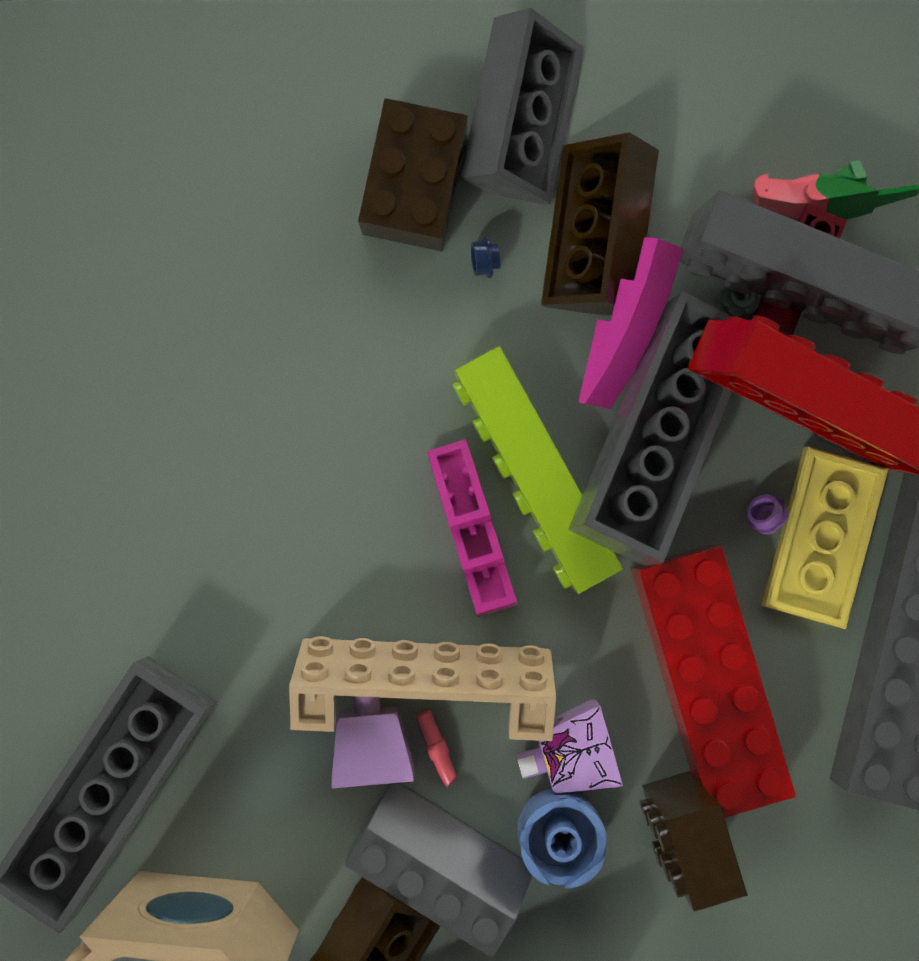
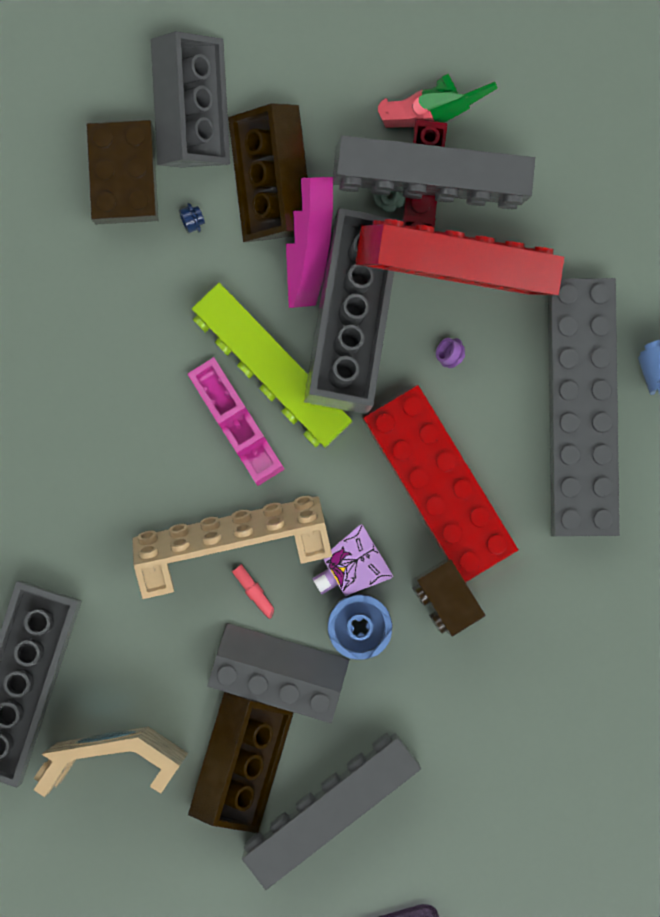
camera: 15 degrees left, 0 degrees up
(371, 746) = (203, 598): lavender torso -> none
(825, 537) = (499, 358): light yellow tile -> none

